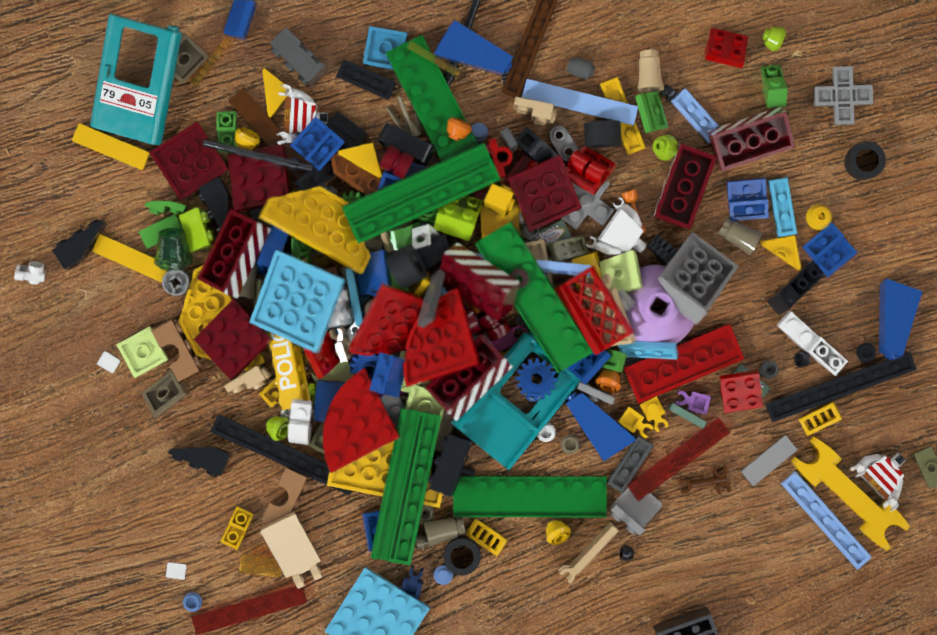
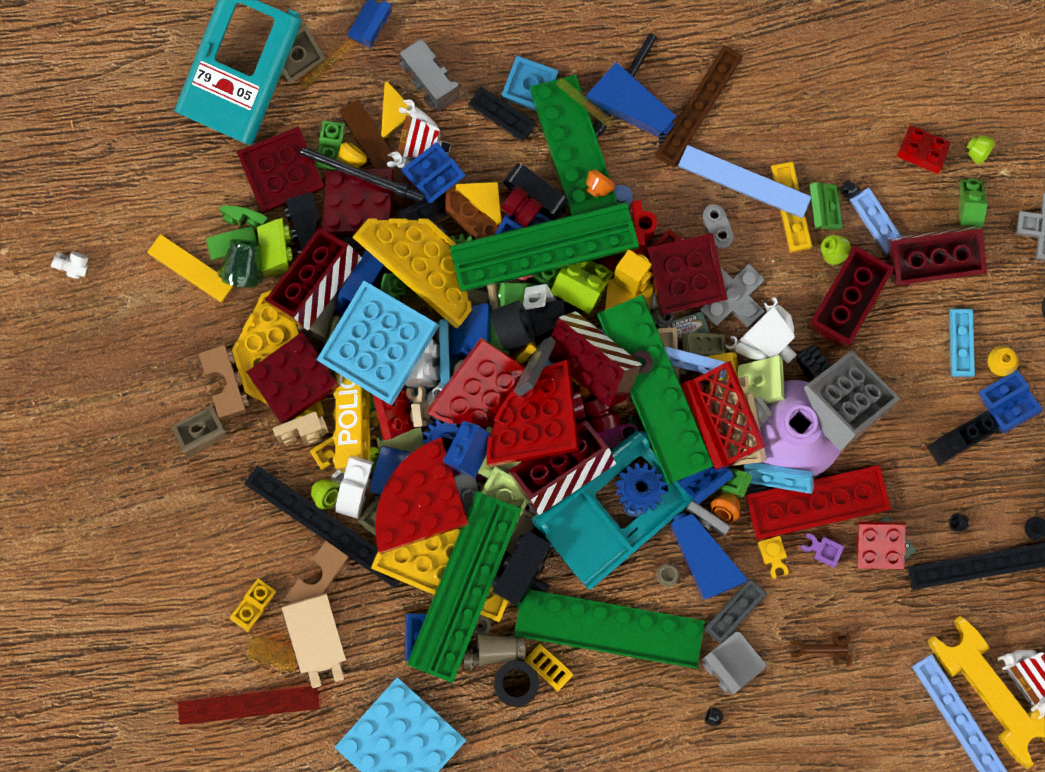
camera: 10 degrees right, 10 degrees down
(76, 249) = (131, 245): black slope -> none
(108, 362) = (139, 384): white sticker -> none
(111, 146) = (193, 139): yellow tile -> none
(142, 352) = (182, 378): yellowish green plate -> none
(170, 288) = (241, 313): light grey wheel -> none
(176, 570) = (169, 644): white sticker -> none
(192, 602) = (182, 684): medium blue plate -> none
(207, 457) = (234, 513): black slope -> none
(347, 131) = (470, 165): black plate -> none
(410, 127) = (544, 173): dark tan plant -> none
(412, 583) = (450, 708): dark blue plate -> none
(443, 575) = (489, 704): medium blue plate -> none
(508, 139) = (655, 204): dark grey tile -> none
(535, 146) = (682, 220): black slope -> none
(541, 112) = (698, 181): tan plate -> none
(547, 433) = (642, 556): white plate -> none
(557, 532) = (635, 676): yellow cone -> none
(580, 67) = (752, 143): dark grey brick -> none
(589, 169) = (743, 258): red plate -> none
(589, 552) = (647, 721): tan tile -> none
(602, 134) = (765, 220): black piece -> none
(630, 197) = (785, 300): orange hinge -> none
(633, 421) = (746, 559): yellow plate -> none
(649, 72) = (831, 161): tan plant -> none
(678, 459) = (793, 614): clear red tile -> none
(687, 415) = (812, 564): sand green tile -> none
(740, 235) = (907, 365): dark tan plant -> none
(747, 199) = (922, 326): blue slope -> none
(769, 374) = (917, 534): dark grey plate -> none
(769, 460) = (901, 636): light grey tile -> none
(785, 249) = (957, 391): yellow tile -> none
(812, 343) = (973, 505): white slope -> none
(824, 408) = (989, 590): yellow slope -> none

